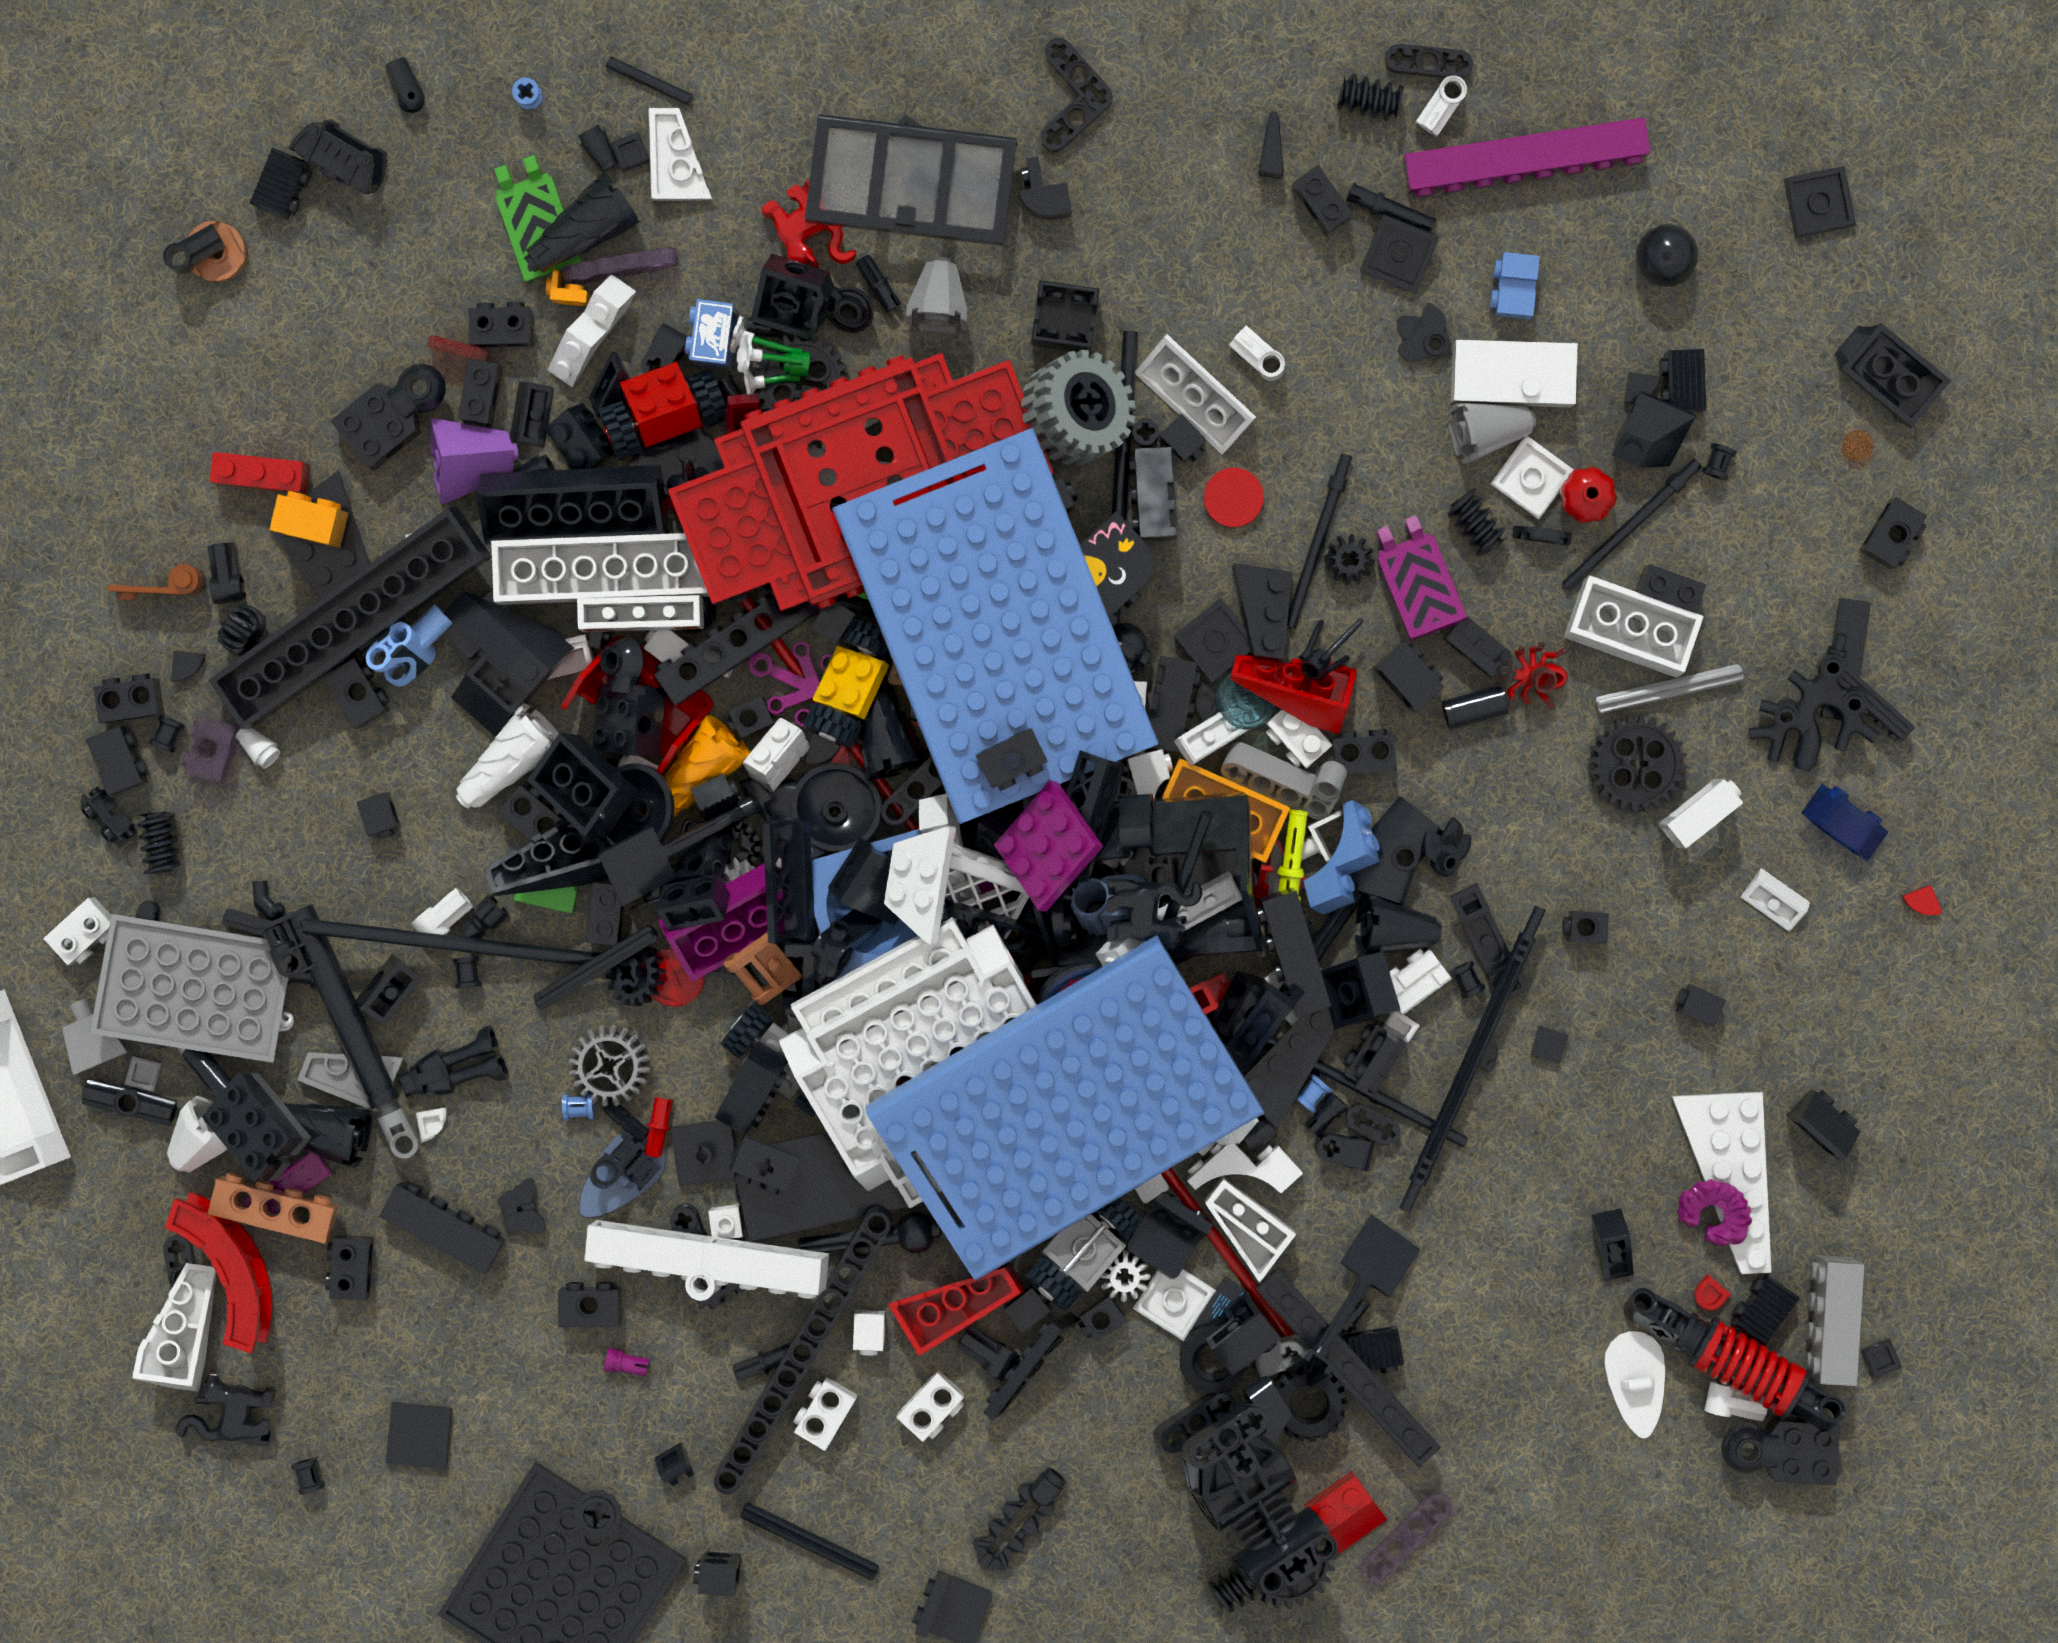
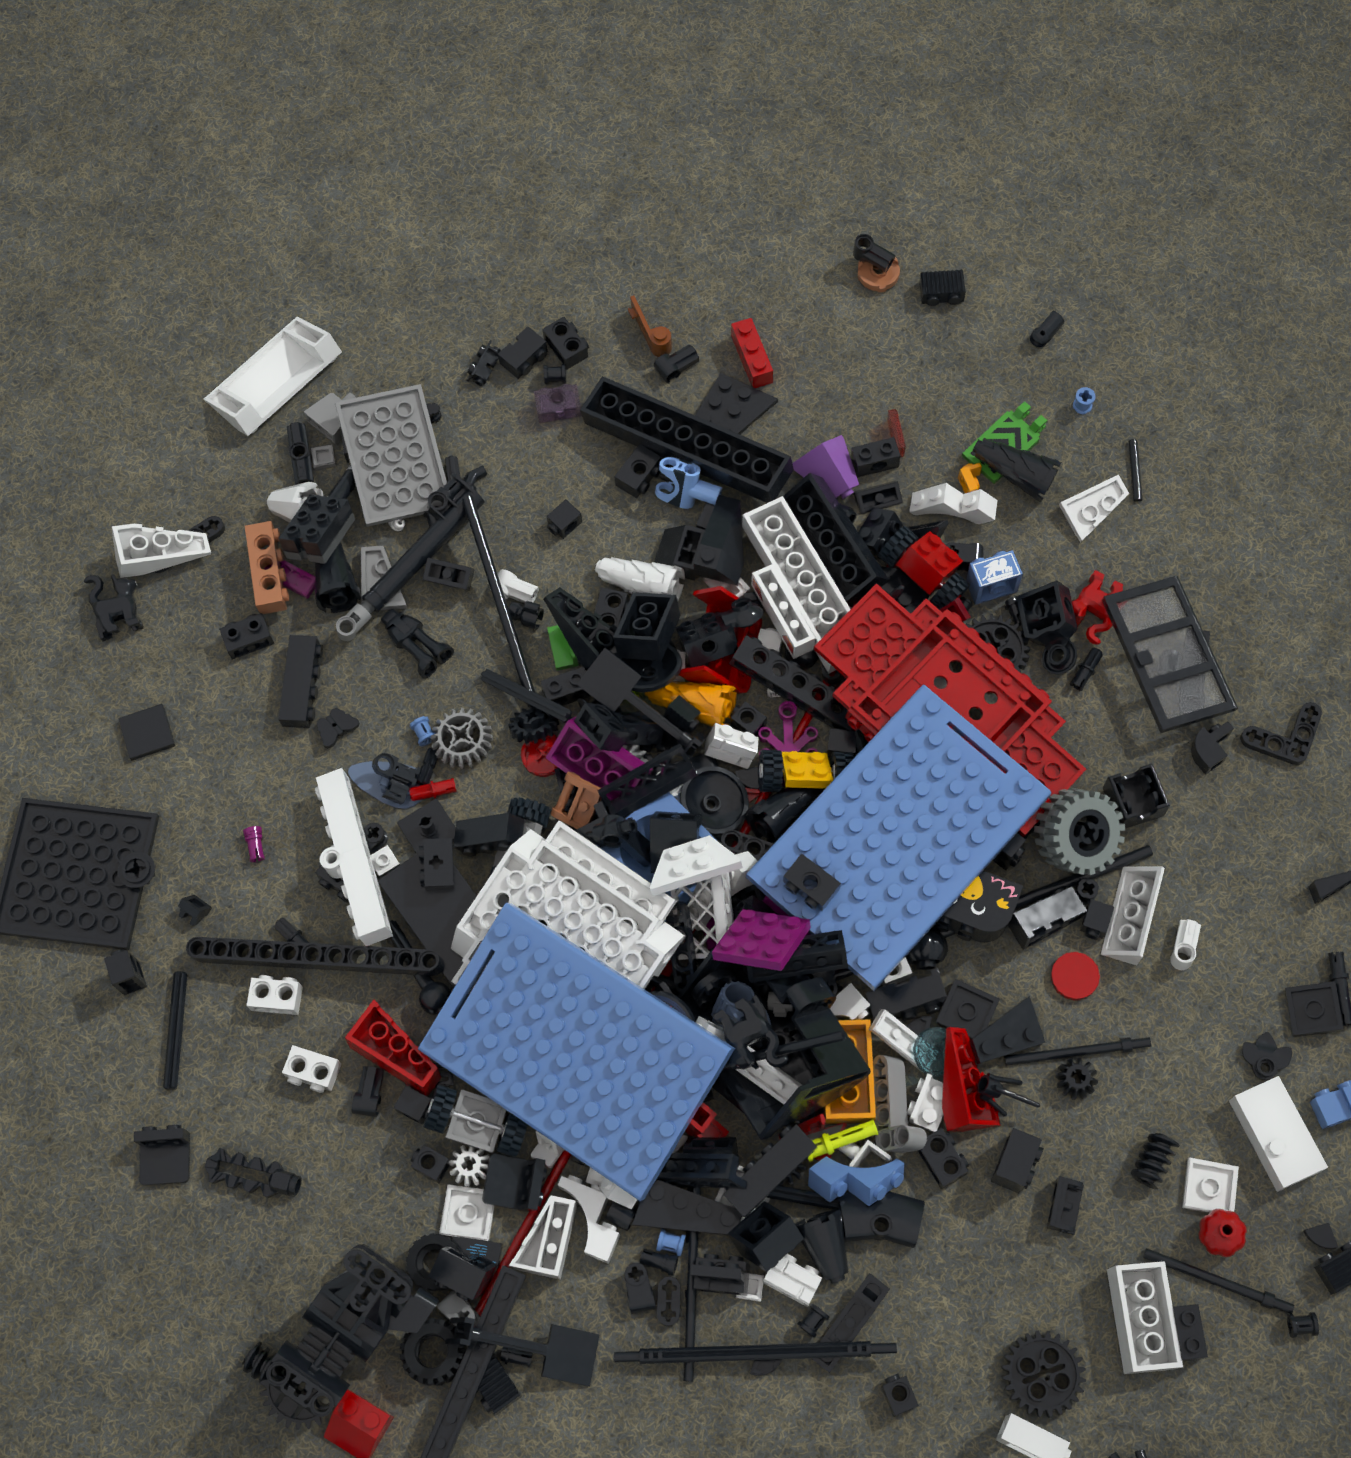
camera: 70 degrees right, 20 degrees down
(80, 932) = (398, 375): white brick -> none
(159, 842) = (481, 398): black piece -> none
(186, 665) = (605, 367): black tile -> none
(237, 1266) = (216, 560): red fence -> none
(241, 629) = (646, 382): black gear -> none
(258, 747) = (572, 431): white cone -> none
(308, 1475) = (89, 672): black bush -> none
(315, 522) = (737, 387): light orange brick -> none
(341, 155) = (980, 311): black piece -> none
(386, 417) = (825, 406): black brick -> none
(431, 1122) = (369, 644): white tile -> none
(467, 972) = (483, 619): black bush -> none
(501, 325) = (925, 451): black brick -> none
(573, 1314) = (276, 791): black brick -> none
(598, 147) = (1074, 457): black cone -> none
(620, 266) = (1006, 505): clear purple beam -> none
(630, 151) = (1082, 479): black tile -> none
(794, 361) = (1000, 596): plant -> none
(869, 1331) = (348, 999): white brick -> none
(938, 299) = (1099, 706): light grey cone -> none
(1032, 1362) = (373, 1125): black wing -> none
(1322, 200) = (1318, 935): black brick -> none
(1419, 581) = (1088, 1137): magenta tile -> none
(1447, 849) = (908, 1255): black plate -> none
(1474, 707) = (1019, 1225): black pin -> none
(1487, 427) = (1229, 1134): light grey cone -> none
(1539, 675) = (1067, 1260): animal -> none
(1542, 535) = (1173, 1216): black tile -> none
(1549, 1044) = (794, 1411): black tile -> none
(1652, 432) = (1295, 1260): black slope -> none
(1669, 689) = (1113, 1373): light grey axle -> none

